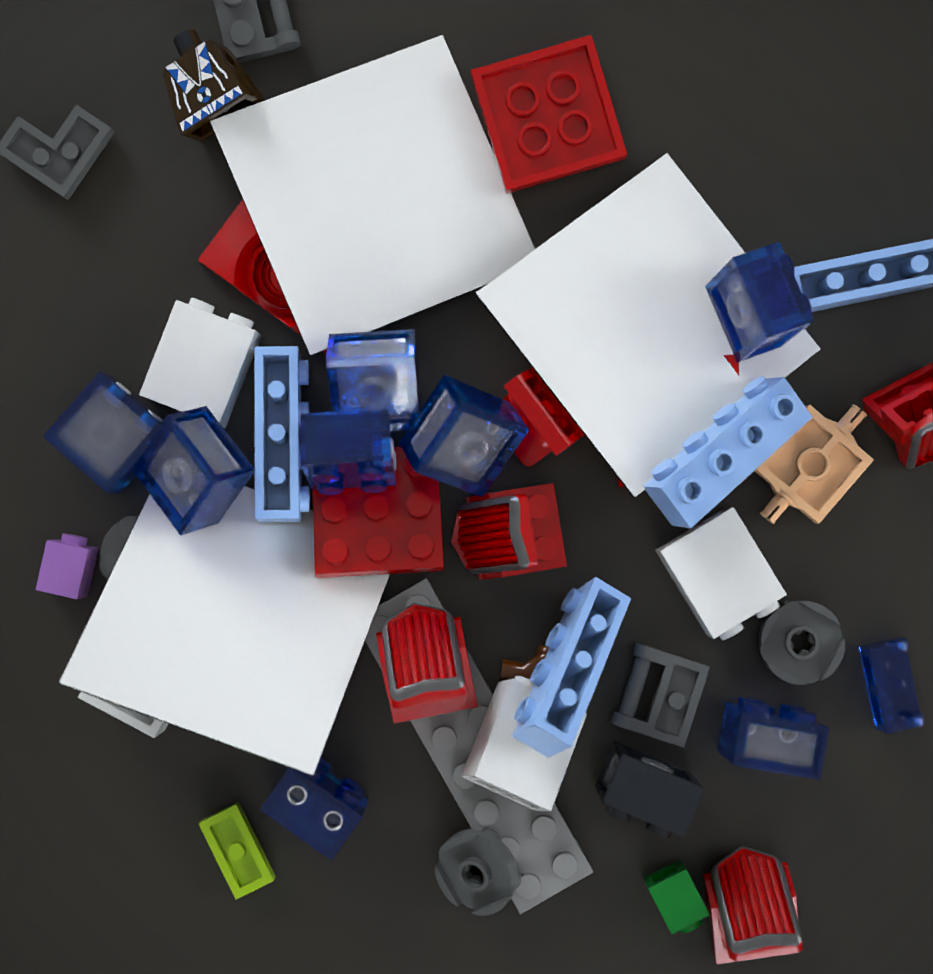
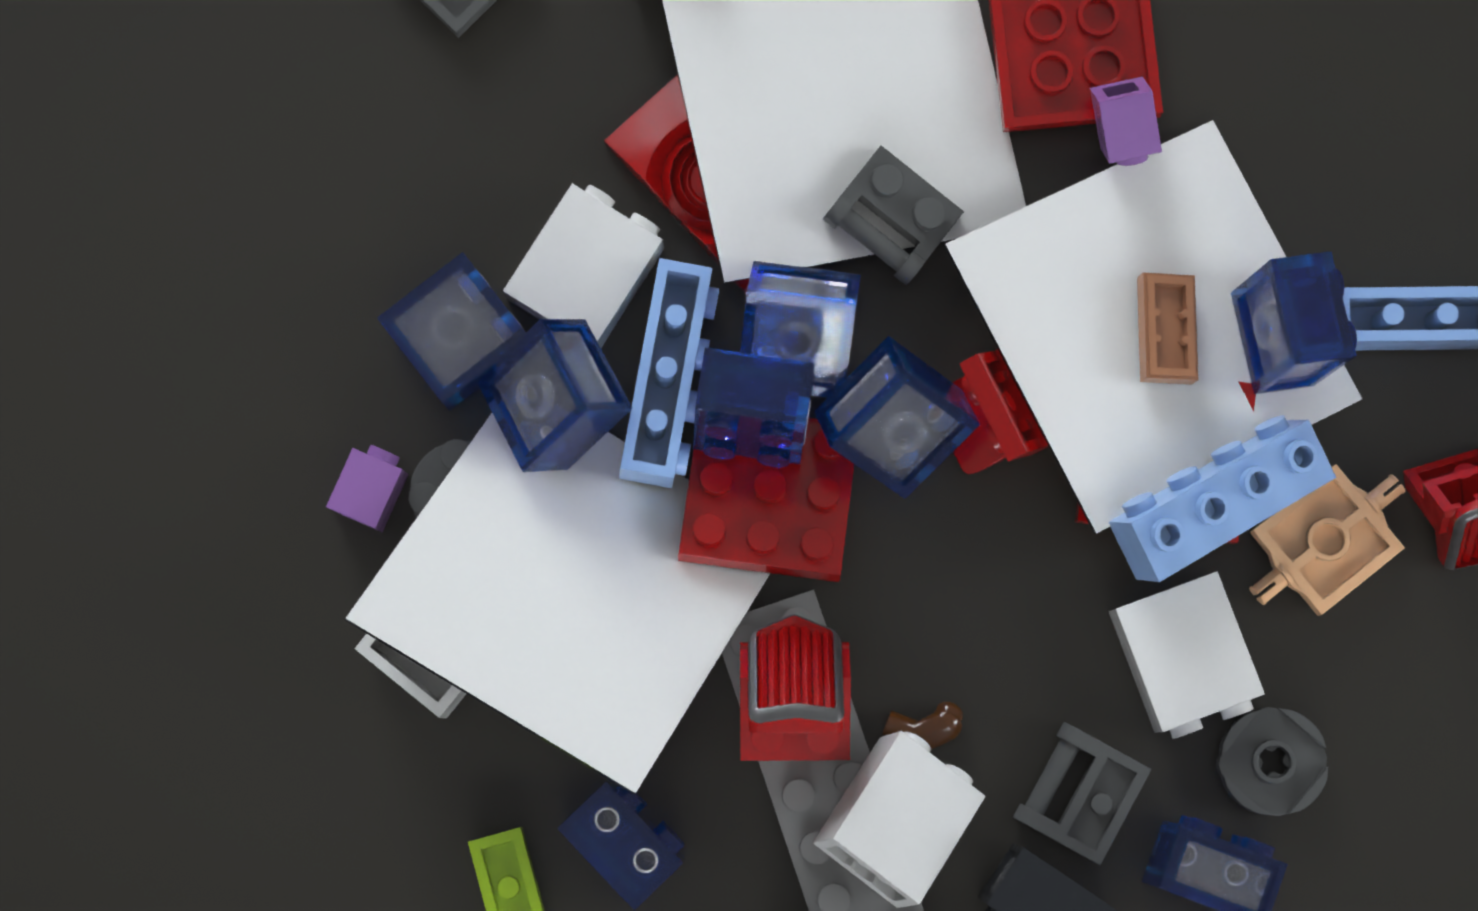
camera: 10 degrees right, 5 degrees down
(438, 265) = (904, 204): none -> dark grey plate
(509, 532) = (929, 552): red piece -> none
(571, 668) = (978, 729): light blue brick -> none
(600, 167) = (1126, 121): none -> medium lavender brick
(661, 325) = (1167, 328): none -> nougat plate
(890, 685) = (1377, 838): clear blue hinge -> none

